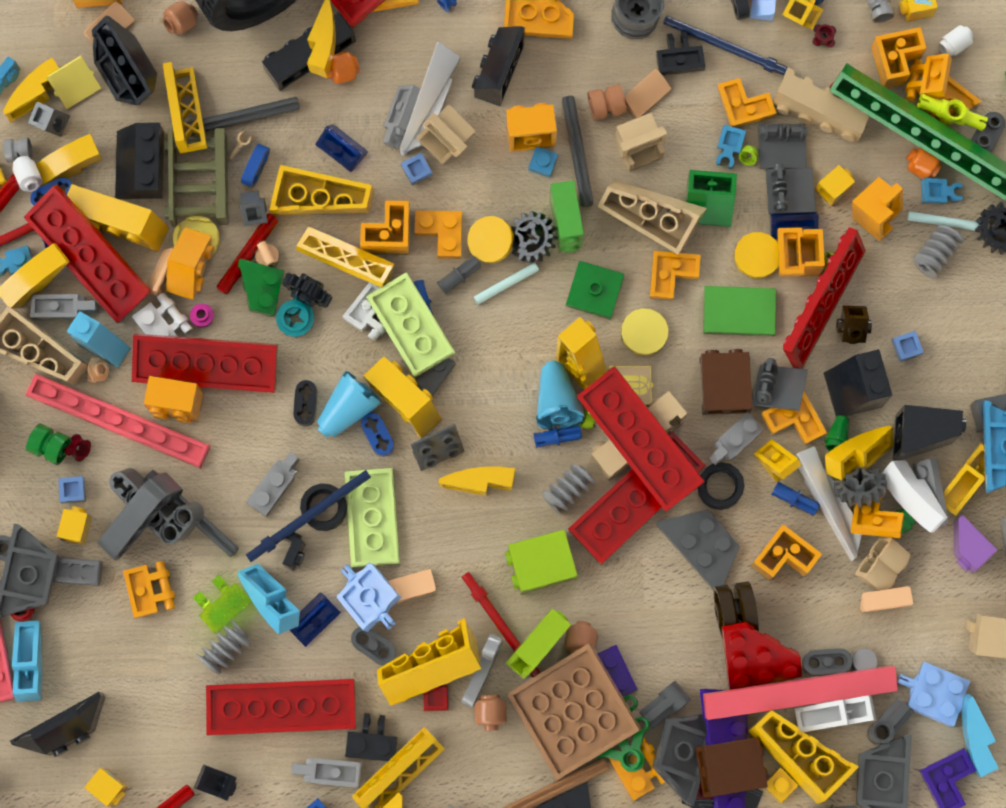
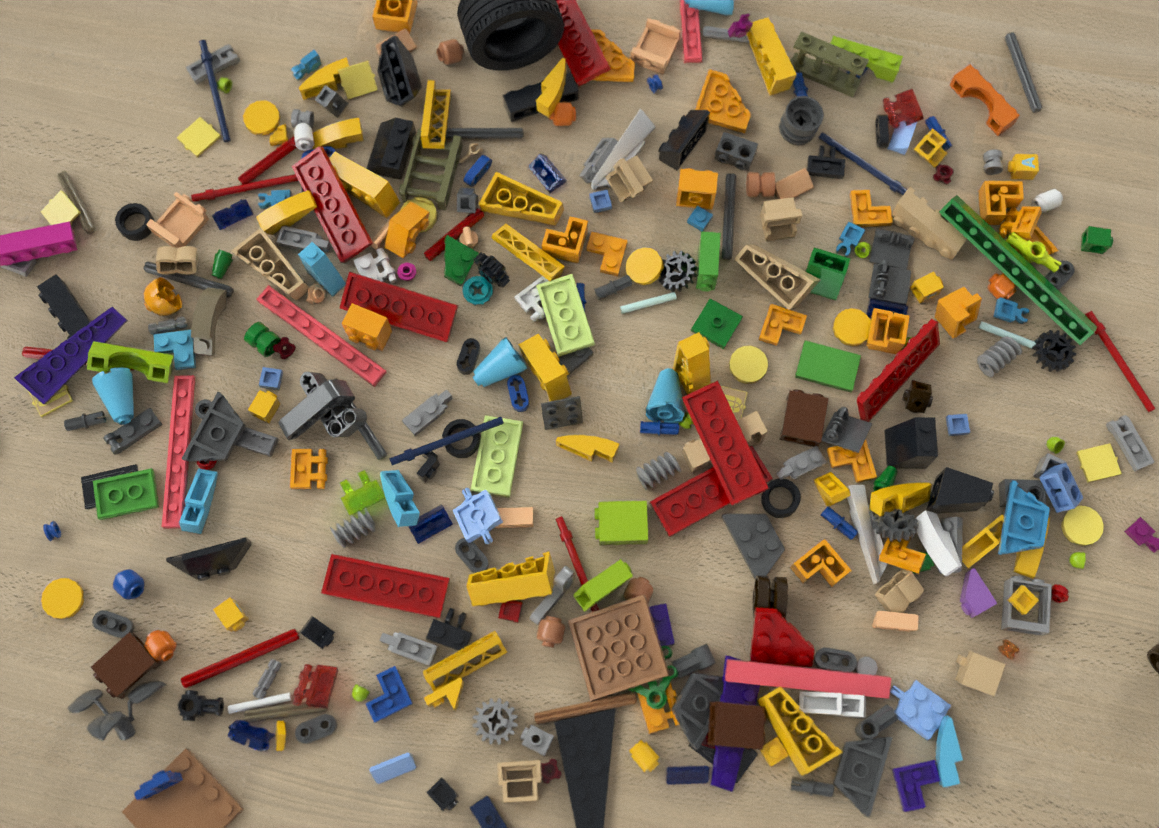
camera: 15 degrees right, 5 degrees down
(567, 60) = (738, 147): none -> dark grey brick

